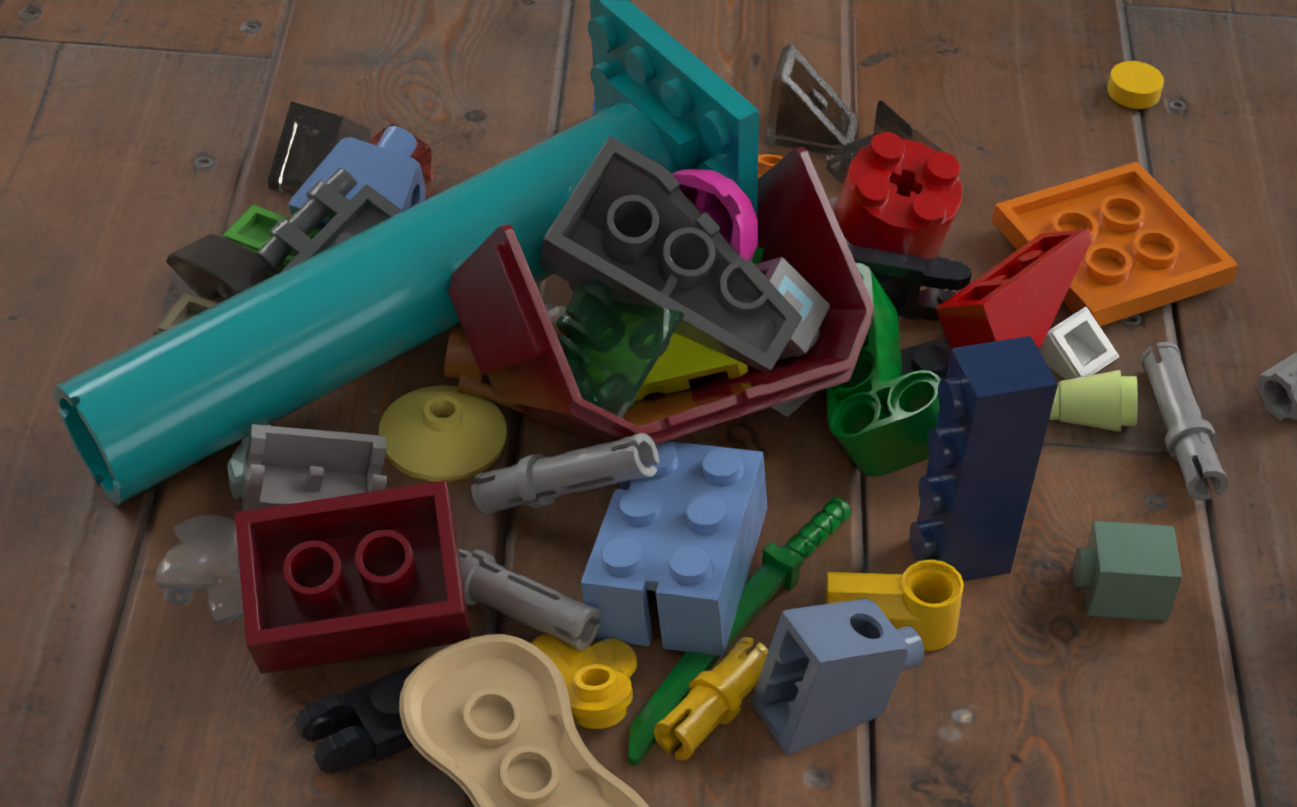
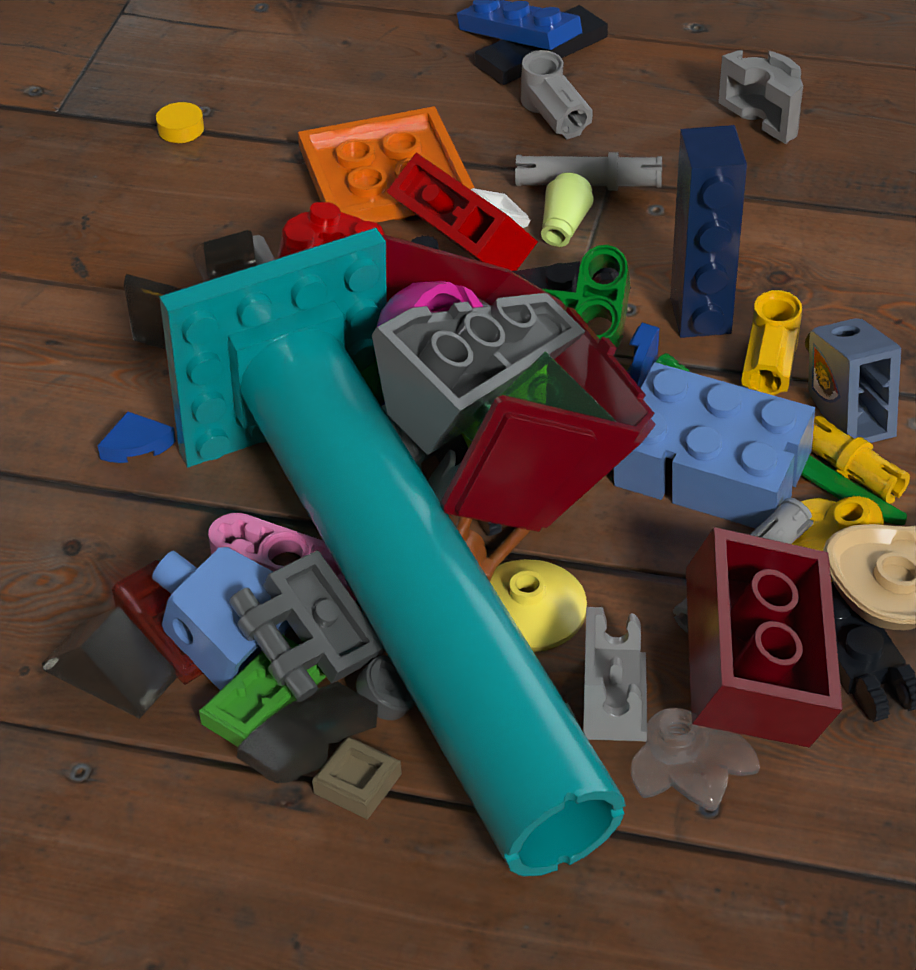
camera: 75 degrees left, 0 degrees up
(542, 479) = (648, 494): light grey pin -> none
(837, 479) = (645, 352): none -> blue tile
(1129, 570) = (757, 222): sand green brick -> none

